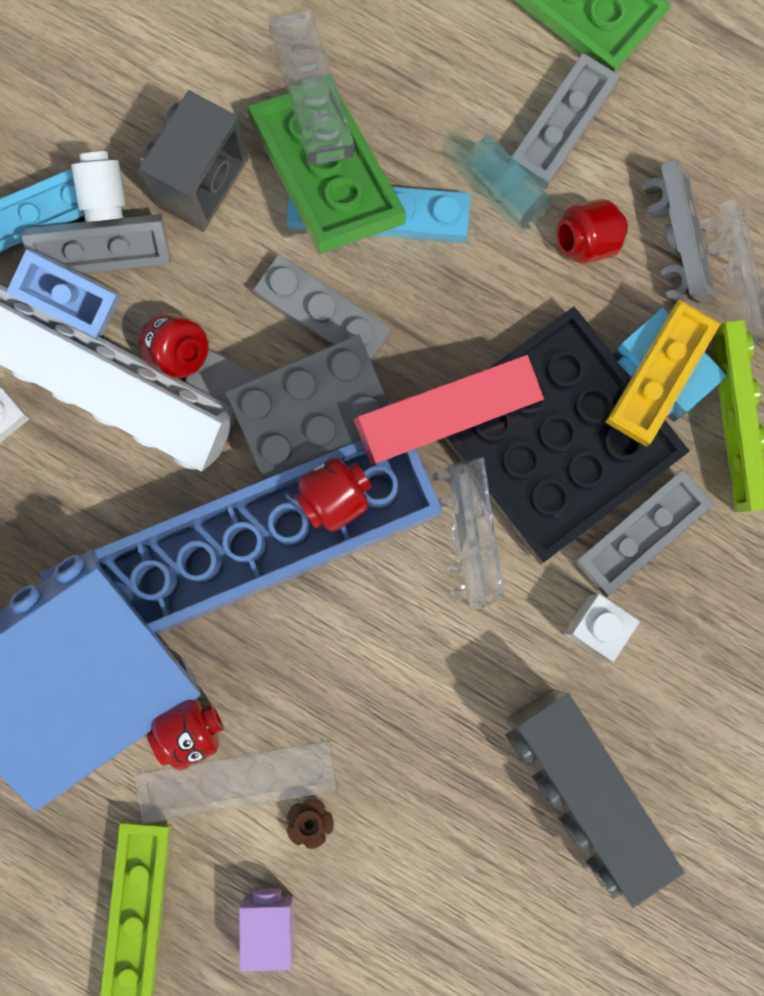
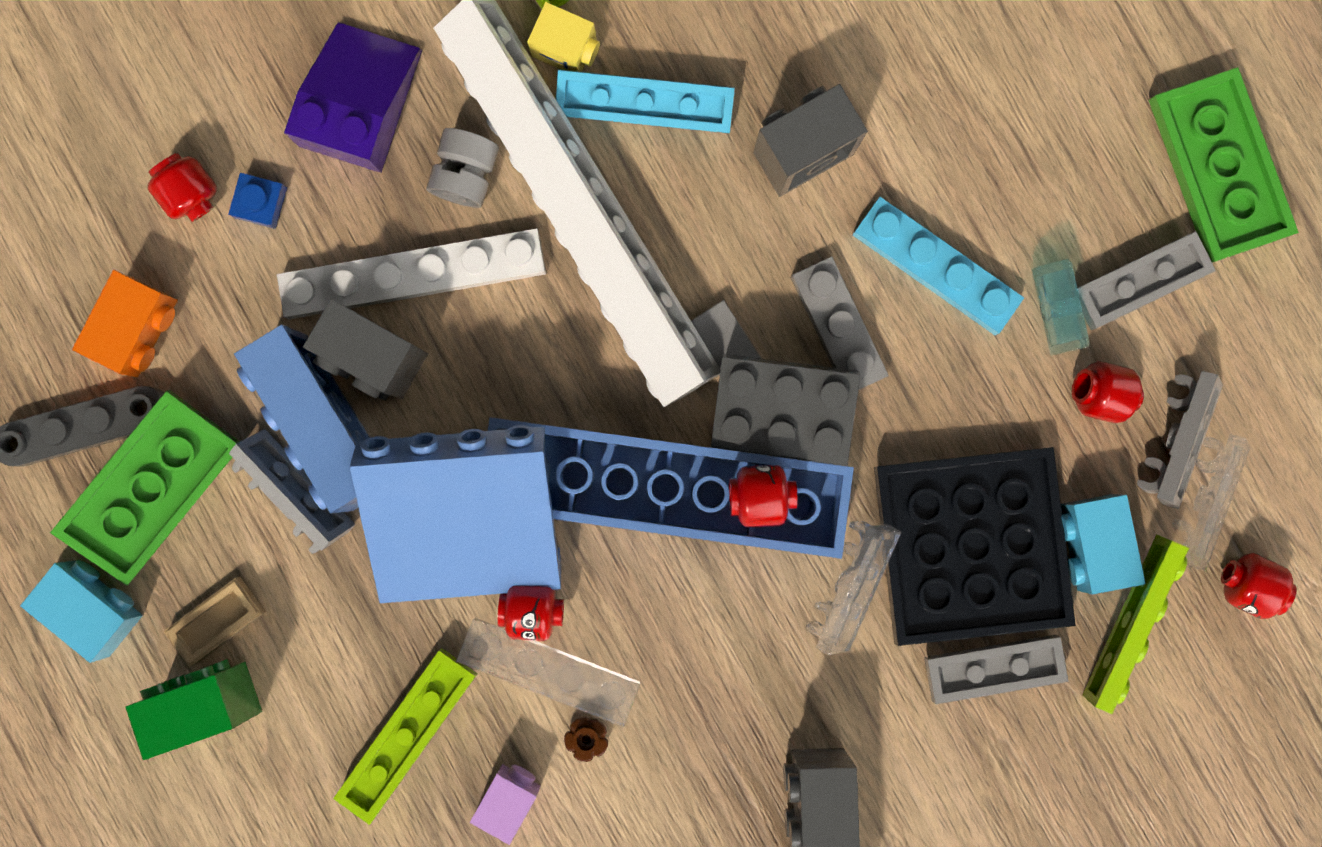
camera: 35 degrees right, 5 degrees up
(64, 293) = (637, 193): light blue brick -> none
(98, 186) = (715, 116): white brick -> none
(103, 243) = (684, 162): light grey plate -> none
(173, 345) = (700, 286): red head -> none
(311, 88) = (943, 129): clear plate -> none
(335, 198) = (916, 206): bright green plate -> none
(448, 409) = (896, 479): coral tile -> none
(601, 628) = (913, 726): white brick -> none
(663, 373) = (1093, 551): yellow tile -> none

